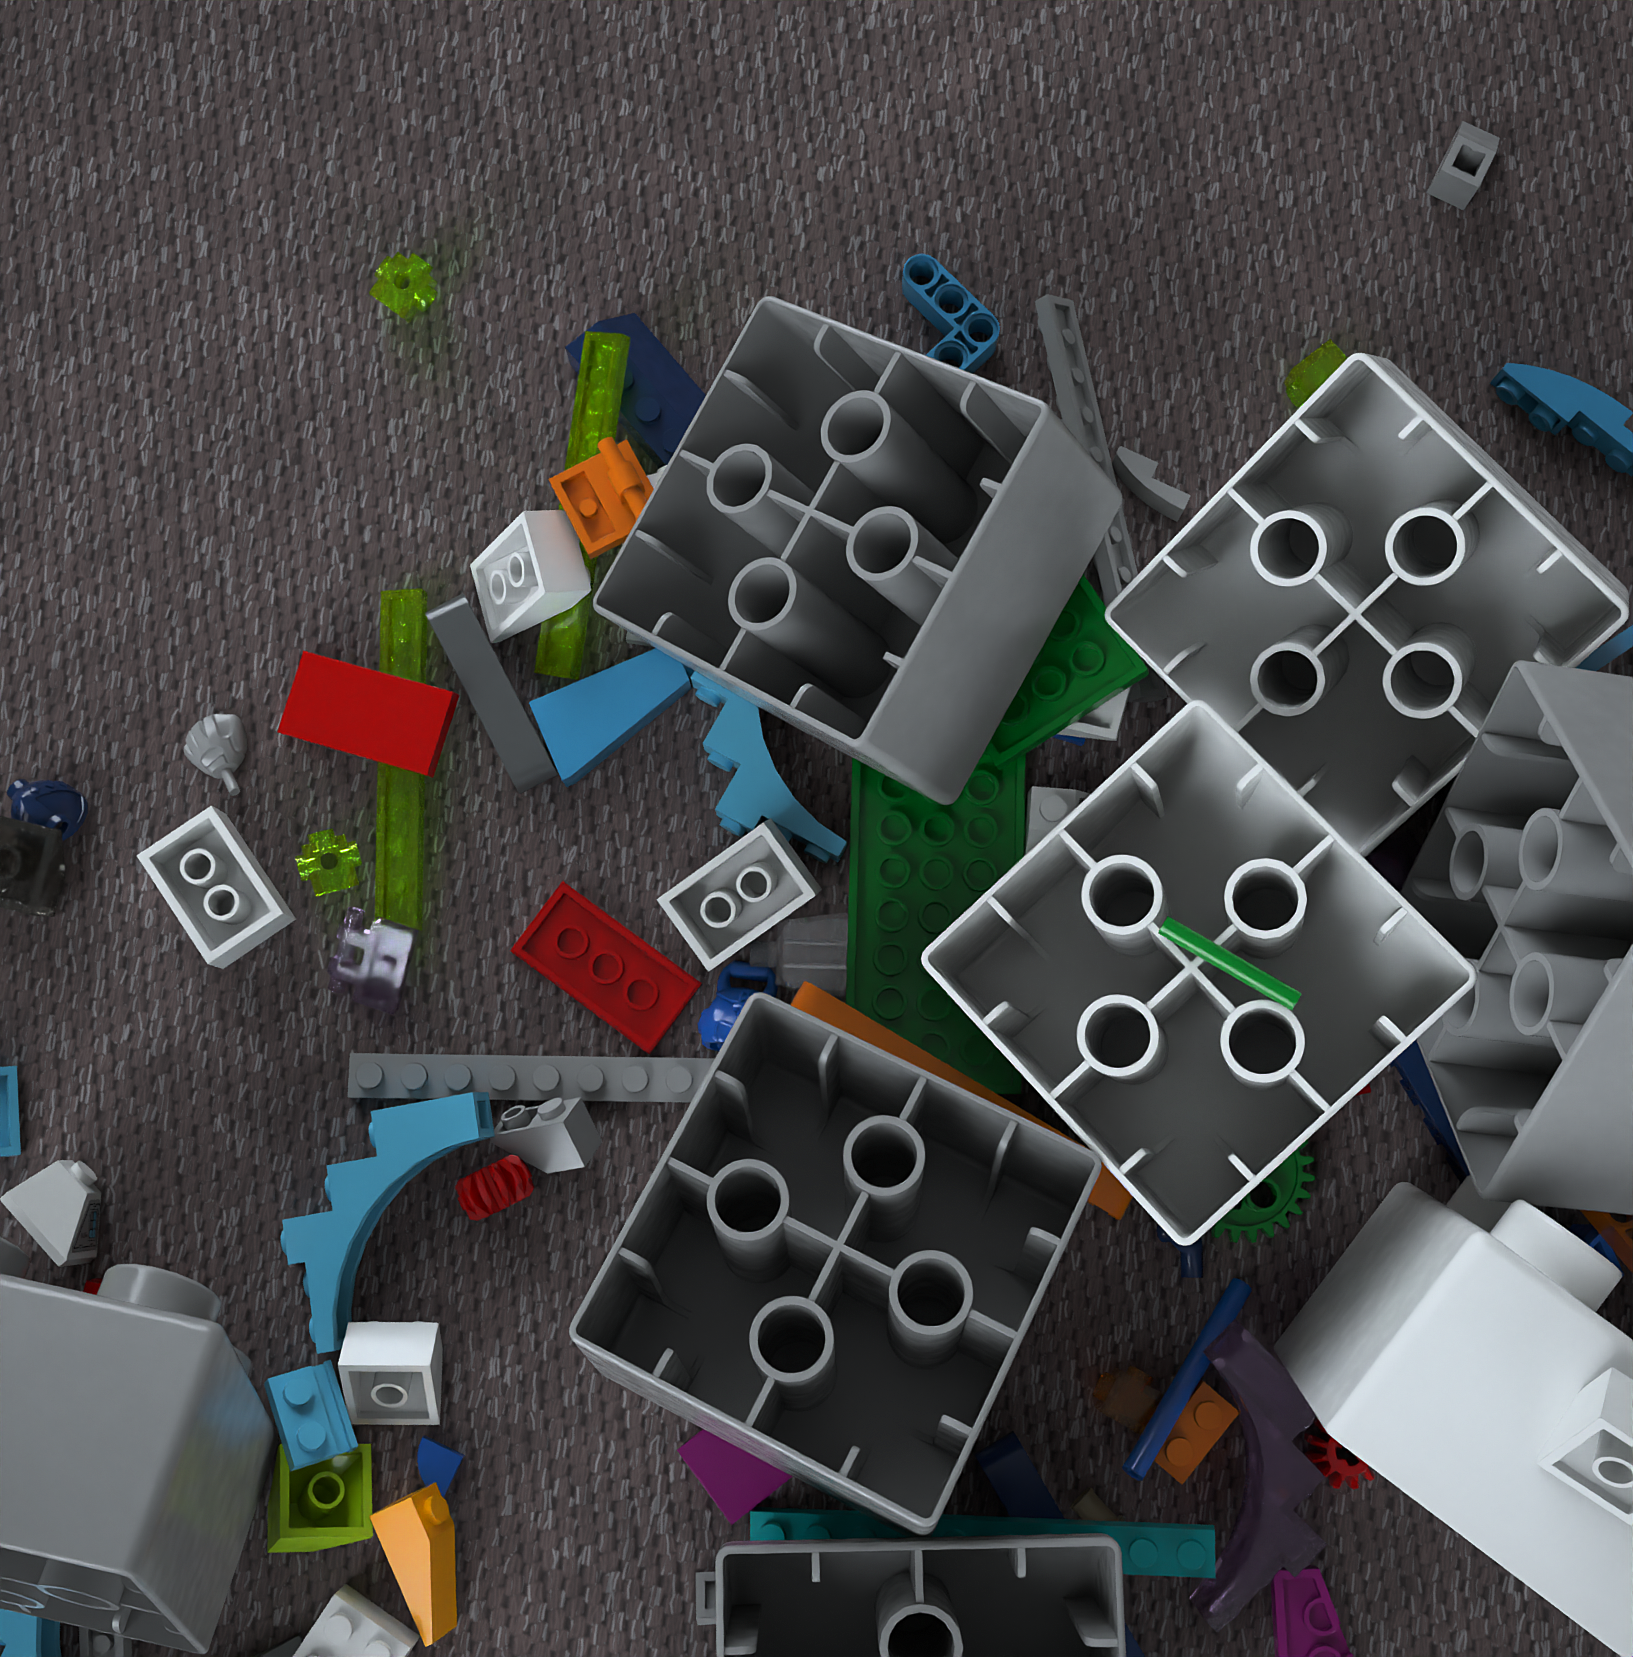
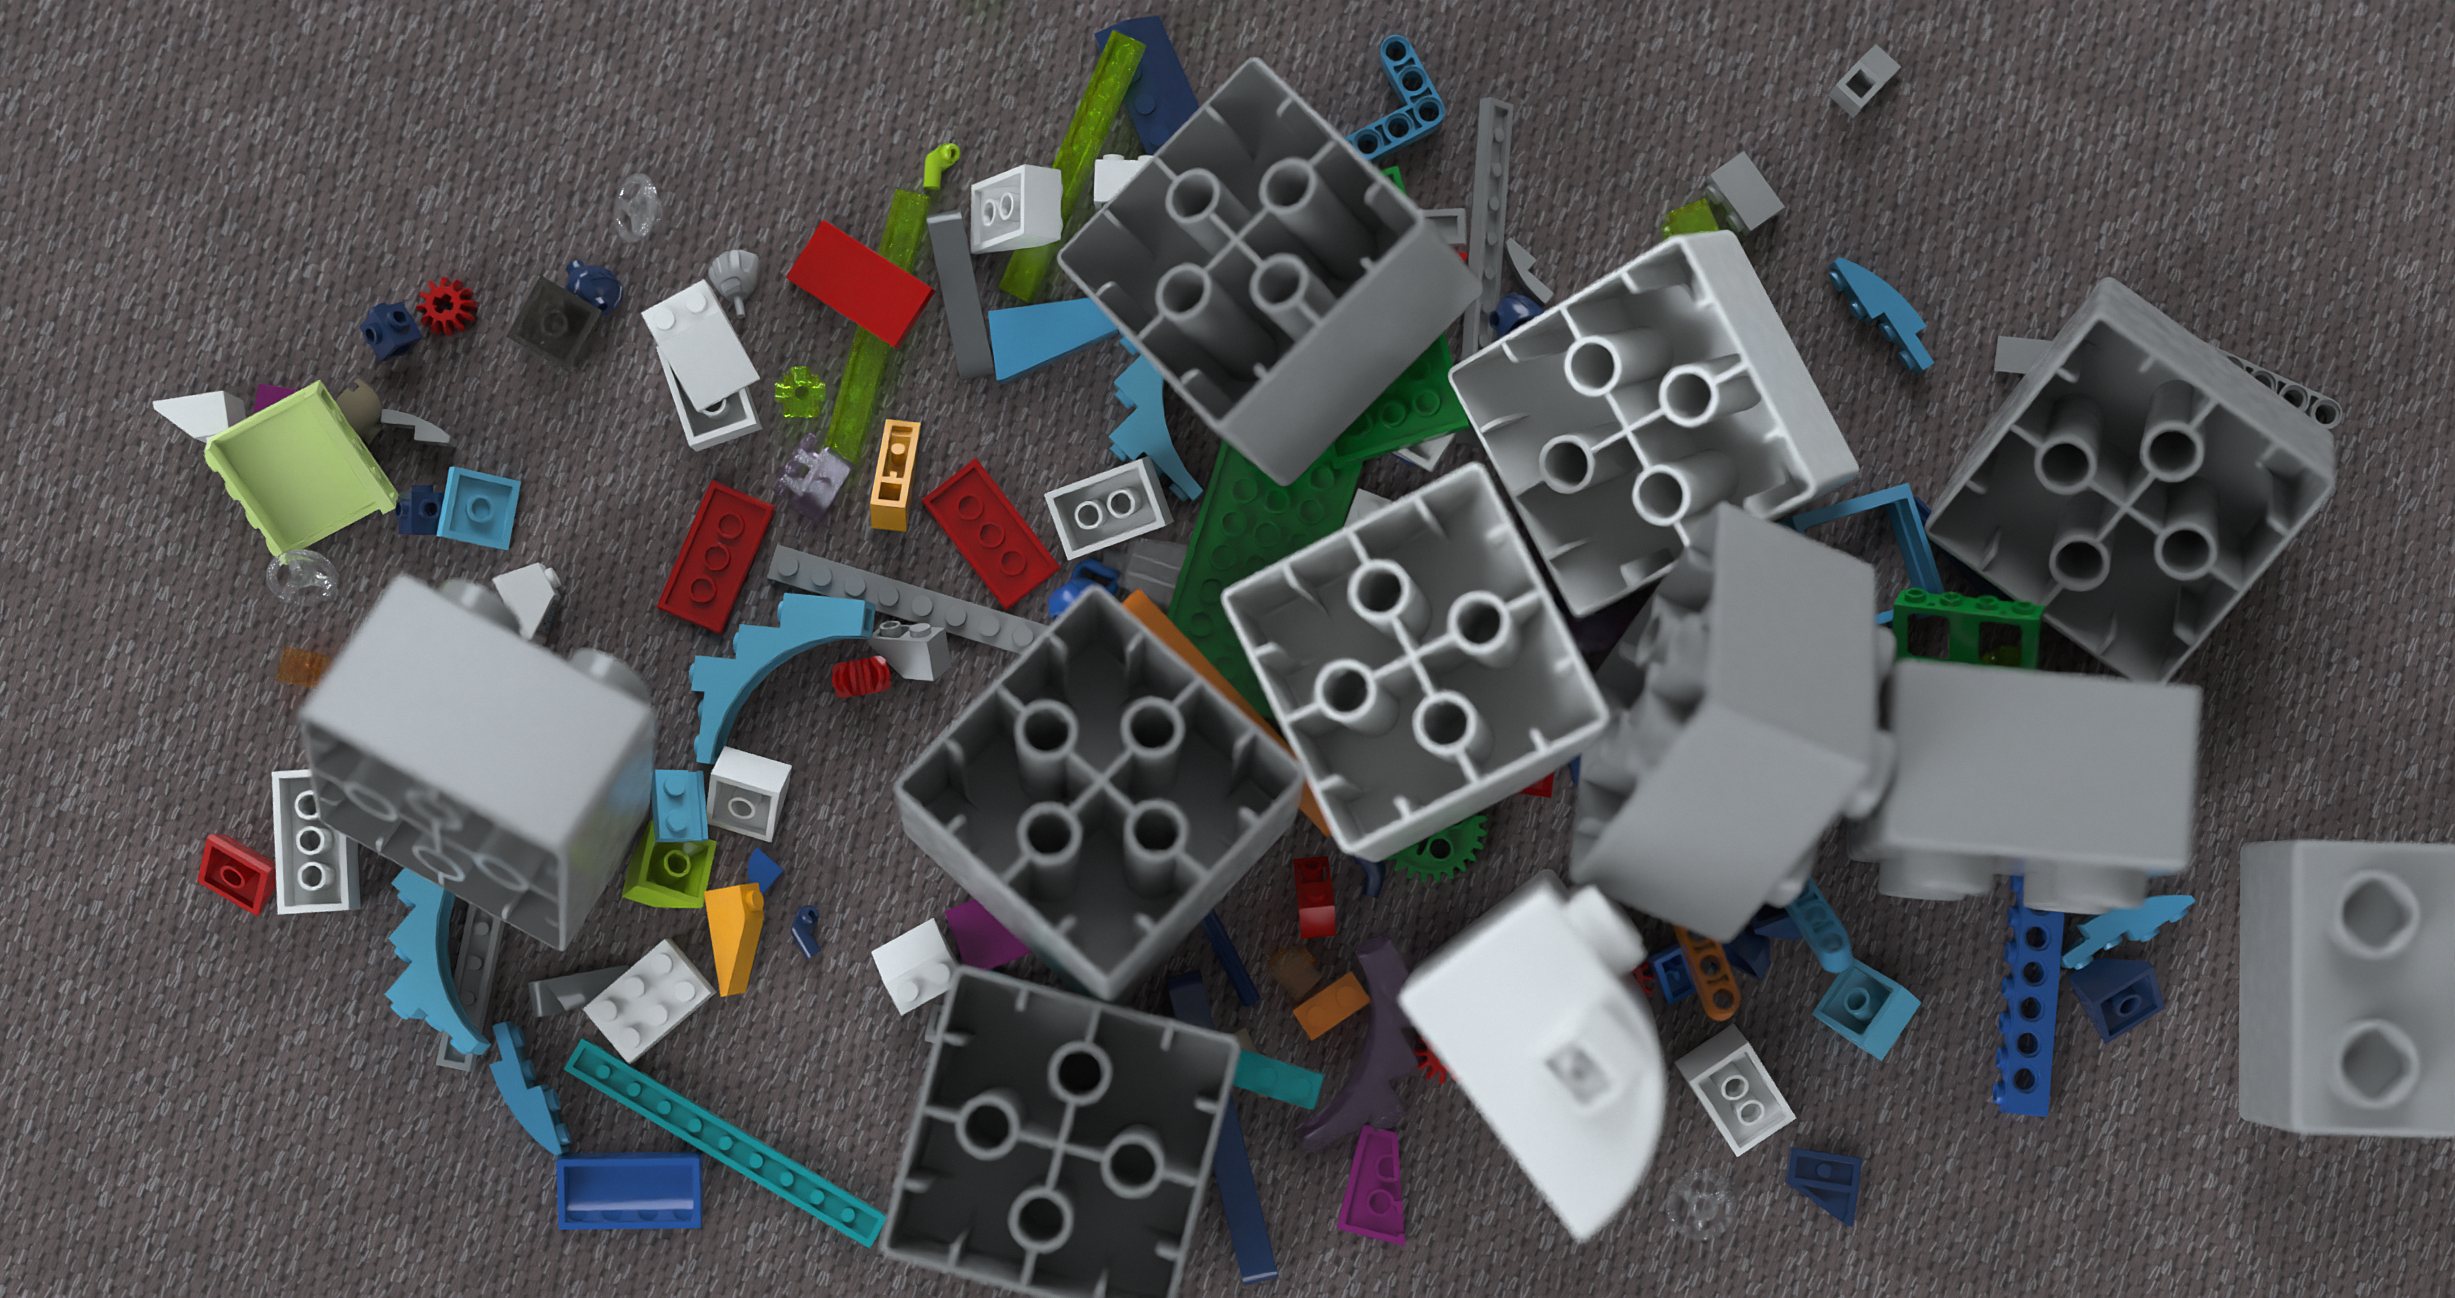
camera: 15 degrees right, 5 degrees up
(83, 698) = (643, 209): none -> clear piece
(188, 837) = (701, 345): none -> white slope
(280, 1090) = (716, 557): none -> red tile
(423, 548) = (937, 162): none -> lime arm
(471, 931) = (895, 476): none -> light orange slope
(507, 1525) = (803, 929): none -> dark blue arm
(603, 495) = (1090, 170): orange plate -> none
(663, 1532) = (916, 966): none -> white slope
(1050, 1411) = (1229, 959): none -> dark blue axle
(1127, 1299) = (1314, 897): none -> red slope
(1150, 532) = (1513, 313): none -> dark blue helmet
(1184, 1382) = (1335, 969): blue piece -> none
(1230, 963) = (1439, 661): green bar -> none
(1370, 322) = (1743, 194): none -> light grey brick

